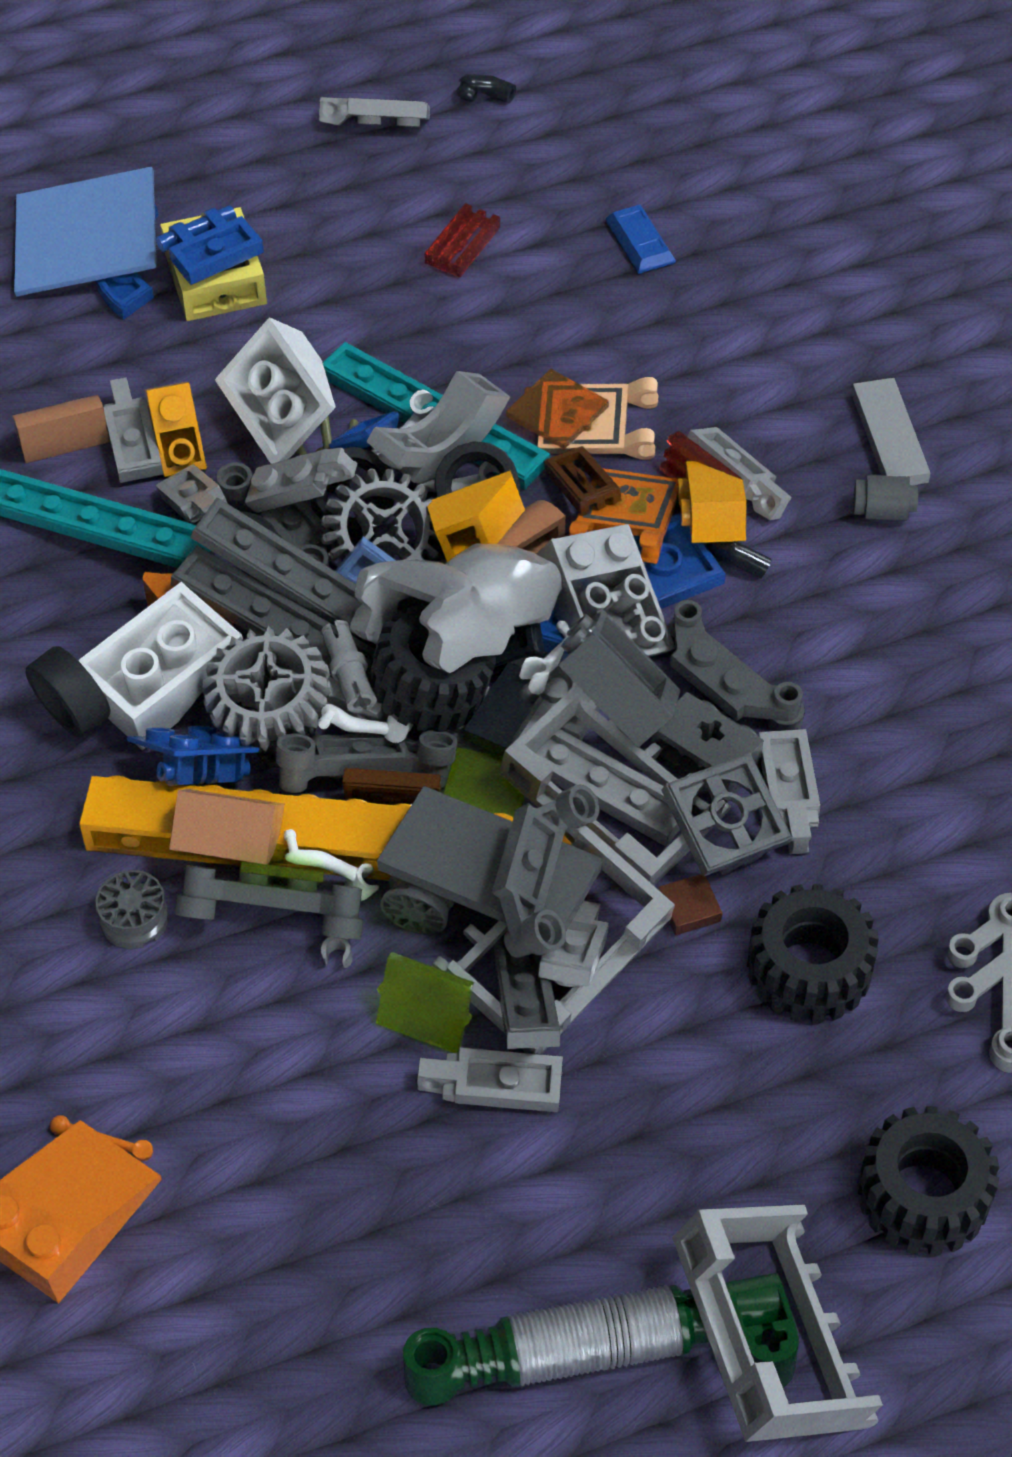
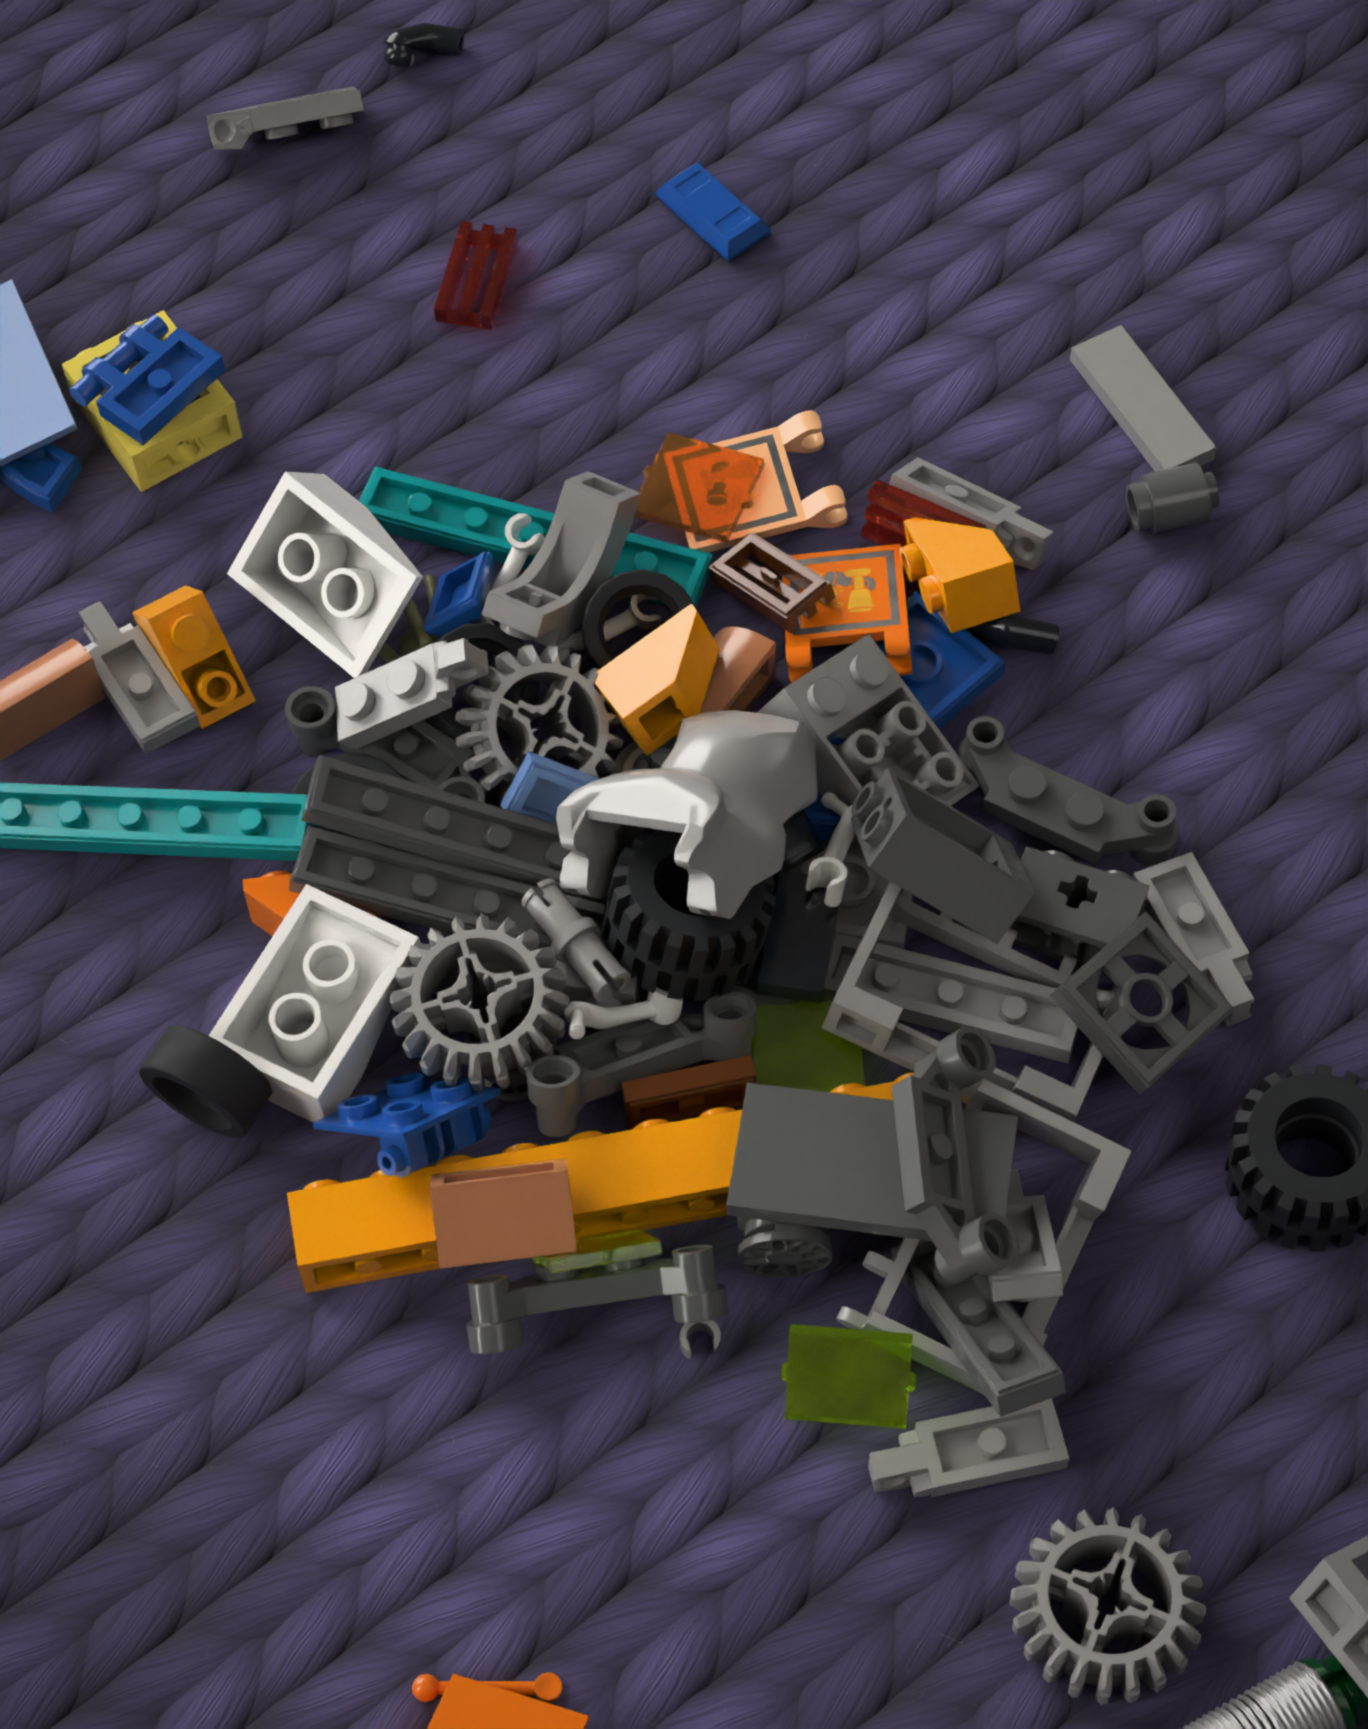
camera: 15 degrees left, 5 degrees up
(118, 902) = (407, 1362): dark grey wheel -> none
(190, 493) = (261, 749): light grey hinge -> none
(326, 861) = (683, 1227): white piece -> none
(523, 1180) = (1132, 1616): none -> light grey gear
(693, 903) = (1135, 1126): copper tile -> none

